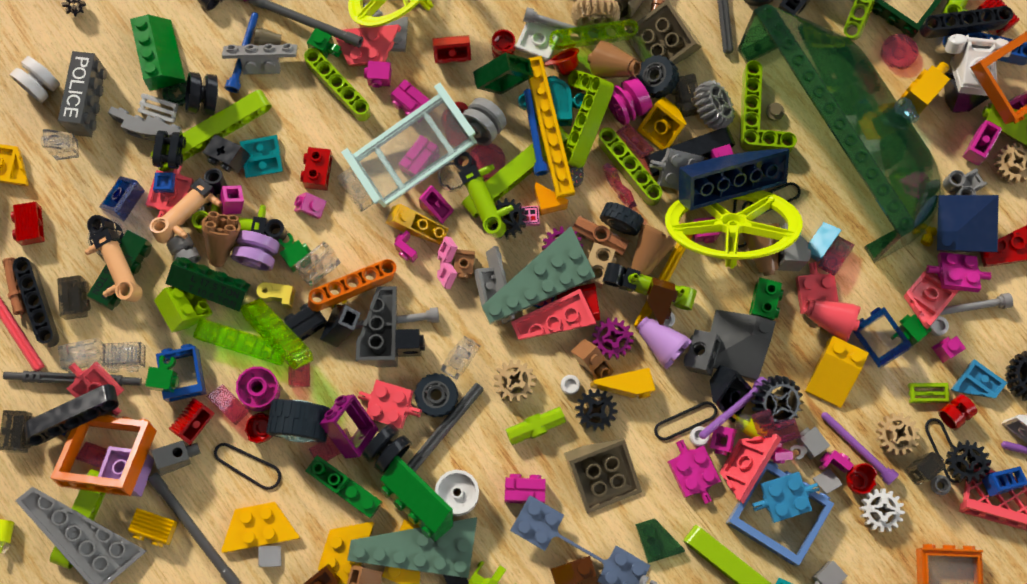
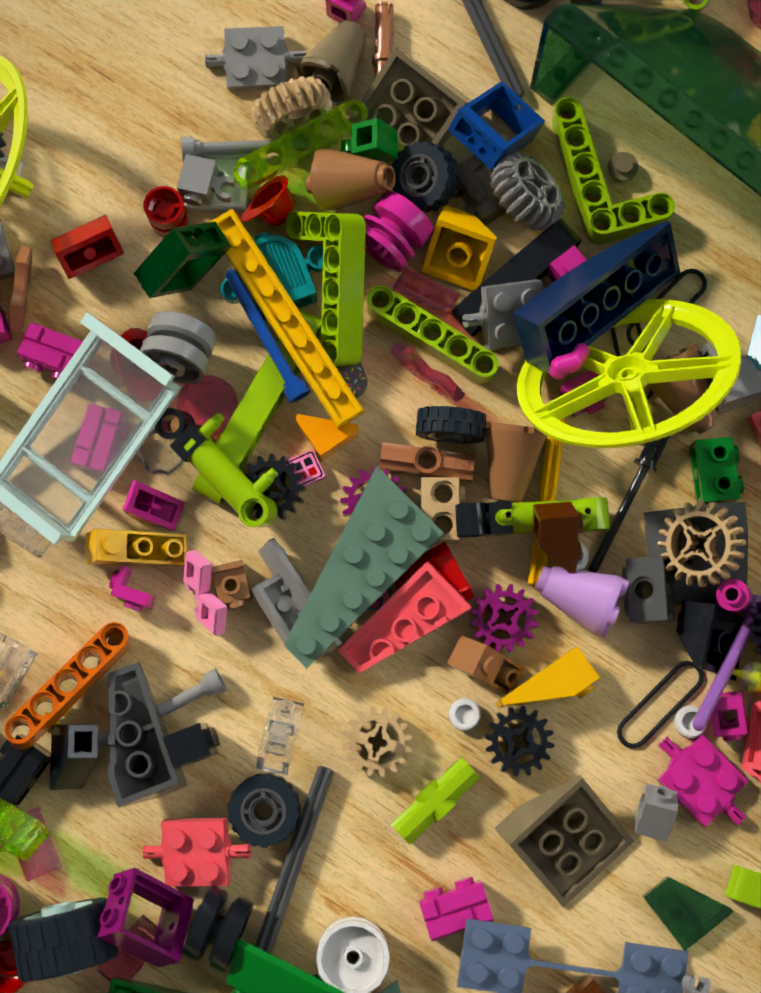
camera: 15 degrees left, 5 degrees up
(408, 54) = (22, 278): none -> nougat tile
(530, 34) = (200, 180): none -> light grey brick
(635, 45) = (372, 140): none -> green brick
(660, 477) = (656, 812): none -> light grey brick
(698, 67) = (482, 138): none -> blue window
(702, 206) = (569, 362): none -> dark pink arm
(727, 281) = (647, 462): none -> black piece
(752, 376) = (744, 595): none -> dark pink brick
(757, 330) = (678, 559): none -> tan gear

